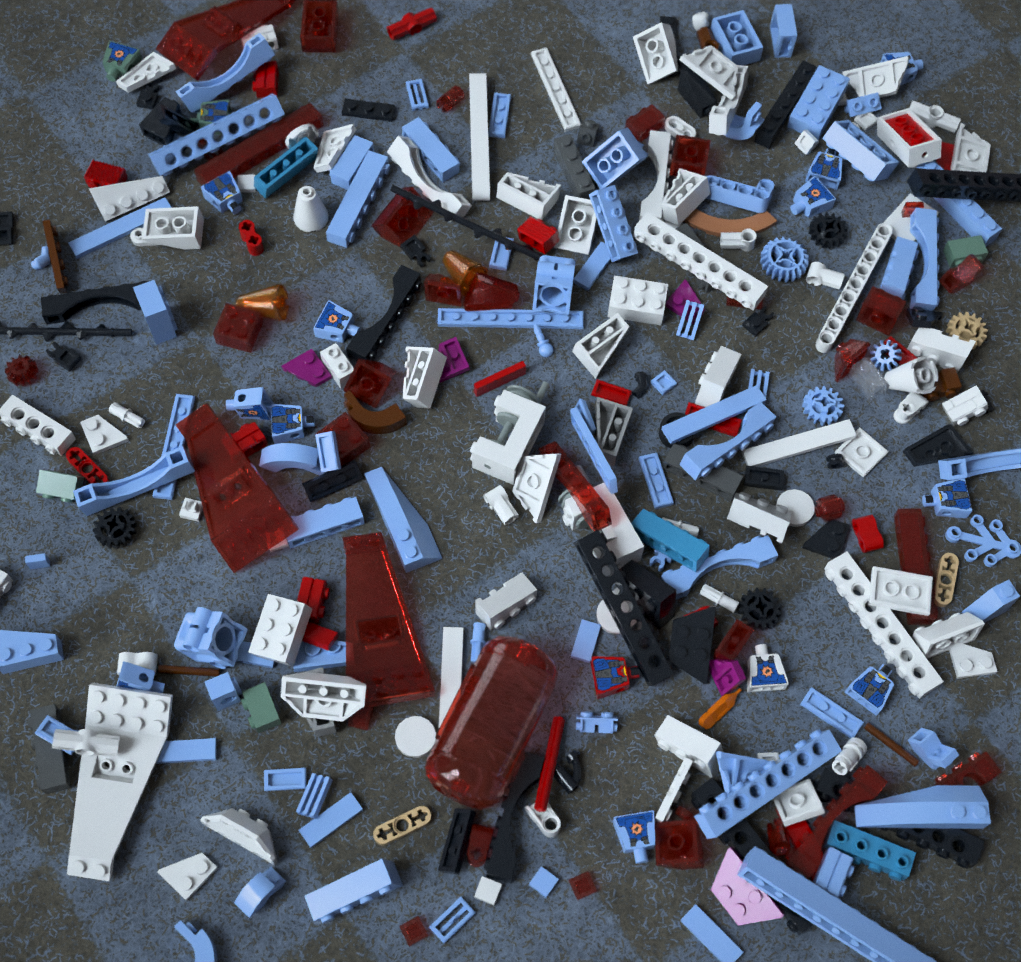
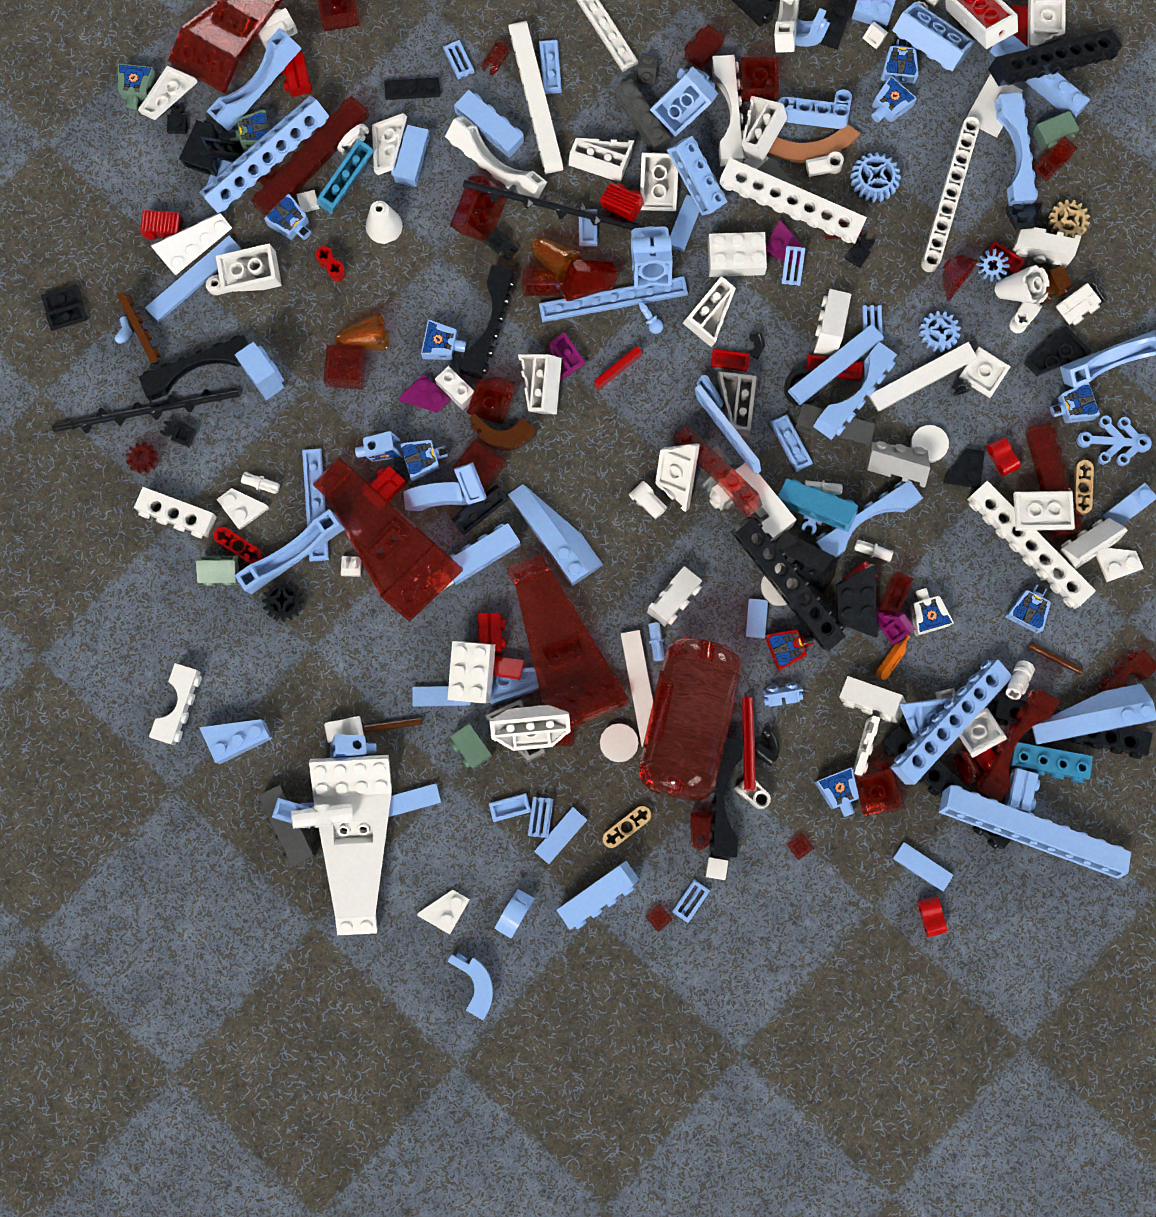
camera: 10 degrees left, 15 degrees up
(37, 561) = (218, 650): light blue tile -> none
(210, 637) = (408, 693): light blue piece -> none
(223, 691) = (433, 739): light blue brick -> none
(243, 831) = (486, 863): white wedge -> none
(357, 199) = (427, 197): light blue brick -> none
(457, 841) = (679, 831): black plate -> none
(523, 415) = (643, 402): white piece -> none
(543, 882) = (764, 850): light blue tile -> none
(663, 382) = (779, 338): light blue tile -> none
(681, 127) = (743, 45): white plate -> none
(740, 898) = (941, 829): wing -> none
(764, 478) = (895, 419): black plate -> none
(766, 603) = (915, 561): black gear -> none
(820, 275) = (915, 187): white piece -> none
(828, 230) = (907, 128): black gear -> none
(829, 507) = (963, 438): clear red head -> none
(832, 713) = (996, 640): light blue tile -> none
(868, 379) = (980, 294): clear brick -> none
(880, 310) = (981, 217): clear red brick -> none
(899, 267) = (991, 169): light blue wedge -> none
(909, 207) = (993, 93): clear red tile -> none
(931, 750) = (1093, 657): light blue brick -> none

